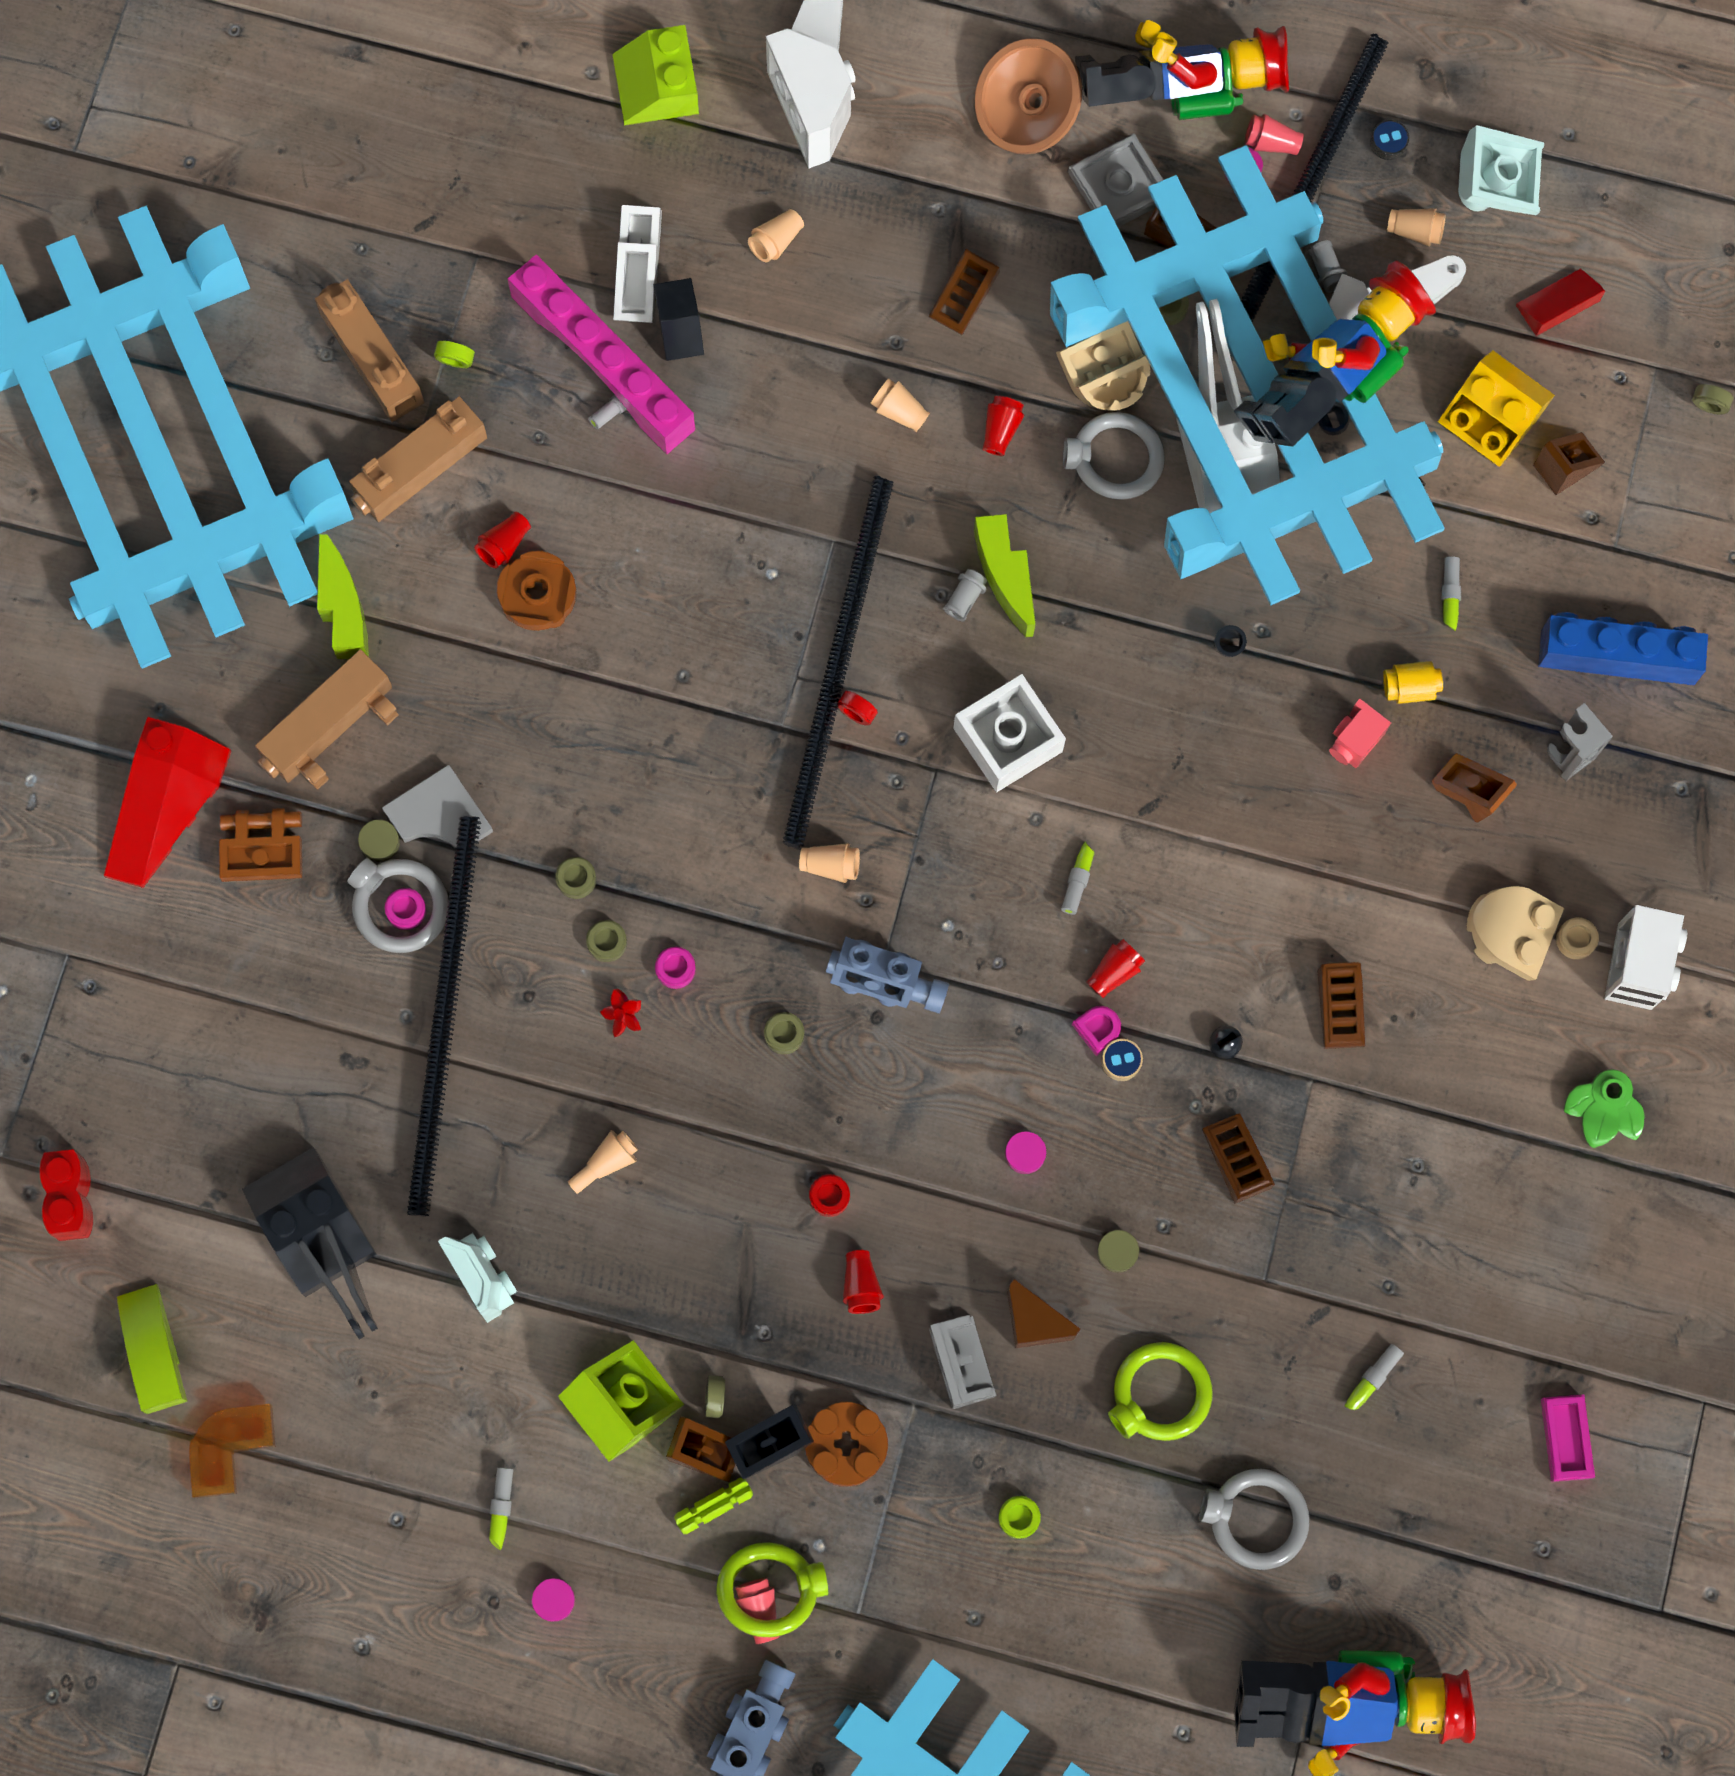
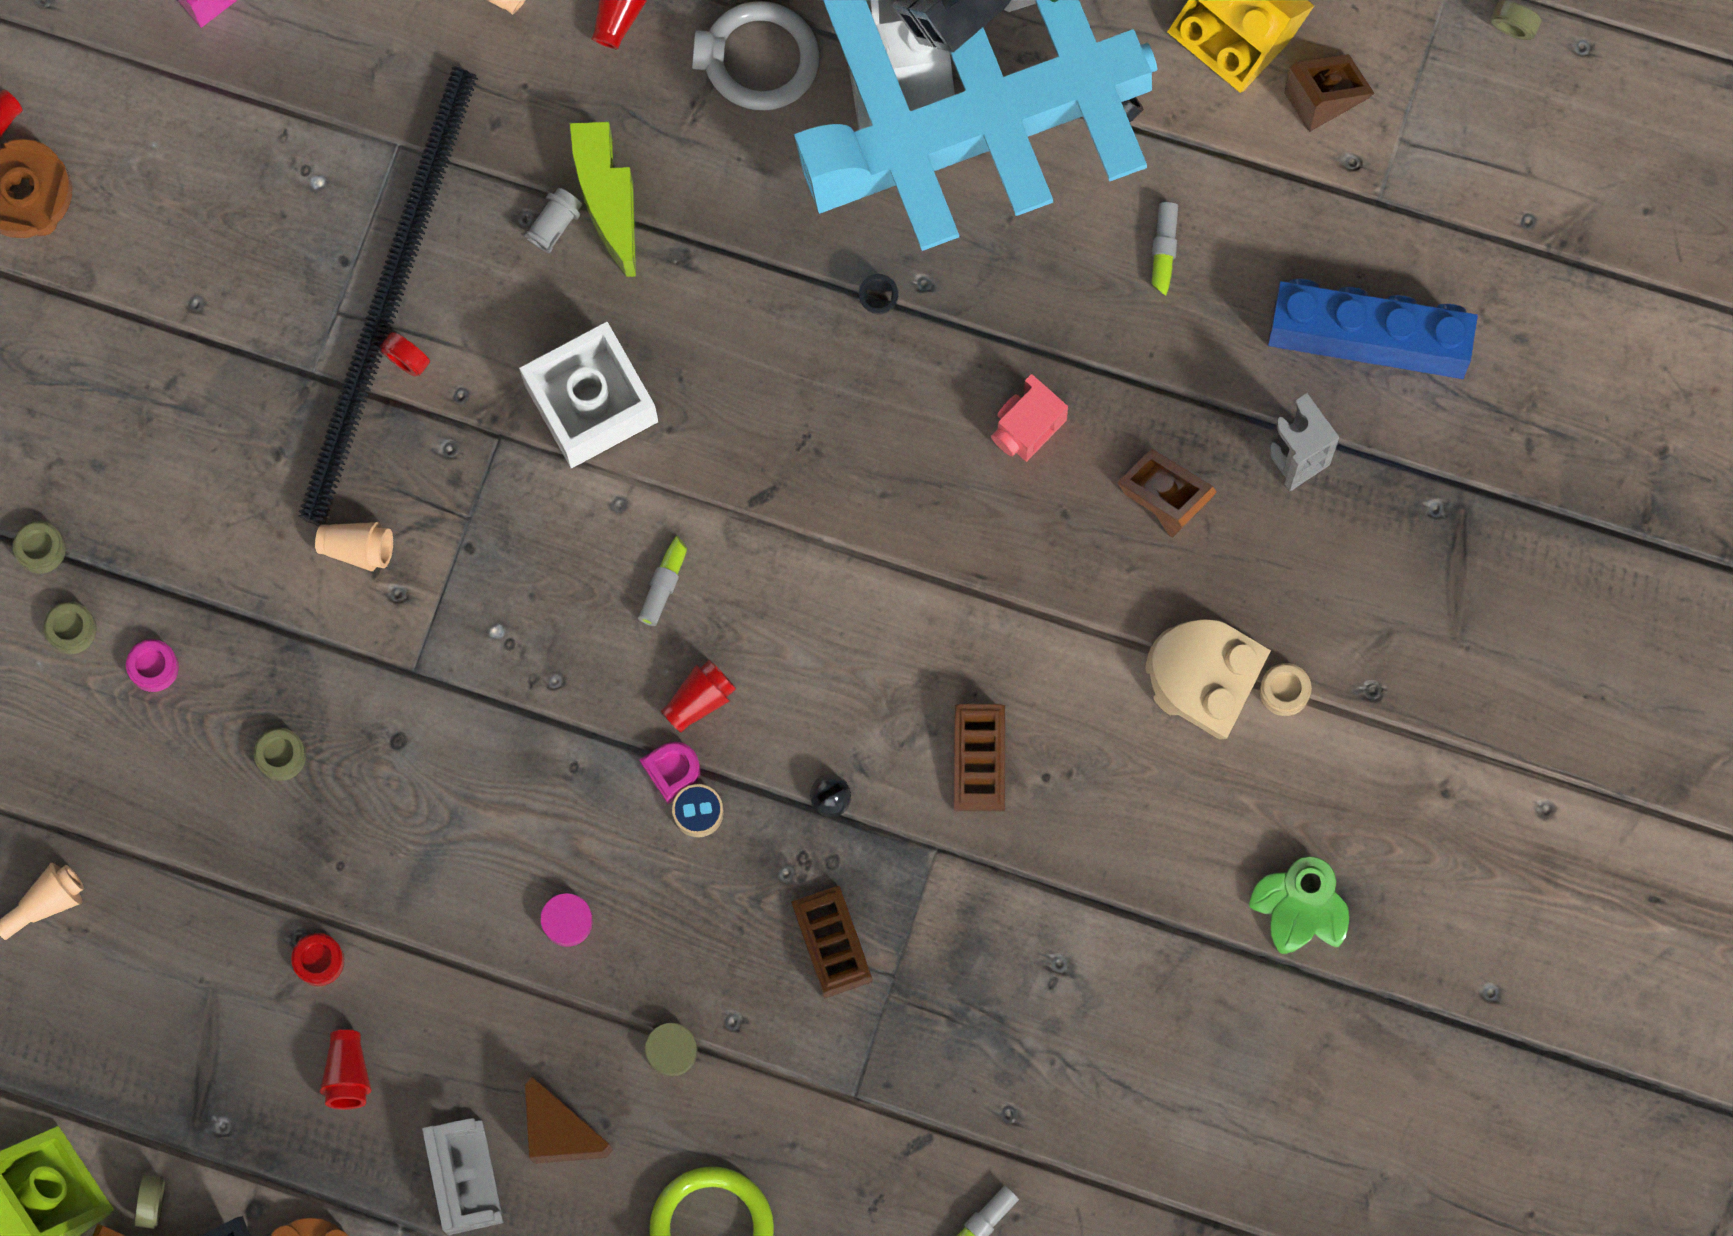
camera: 10 degrees right, 0 degrees up
(623, 1012) = (80, 717): red plant -> none
(881, 970) = (405, 684): sand blue brick -> none
(1342, 417) = (1024, 26): black hinge -> none
(1412, 682) = (1103, 357): yellow brick -> none
(1645, 957) = (1361, 718): white brick -> none

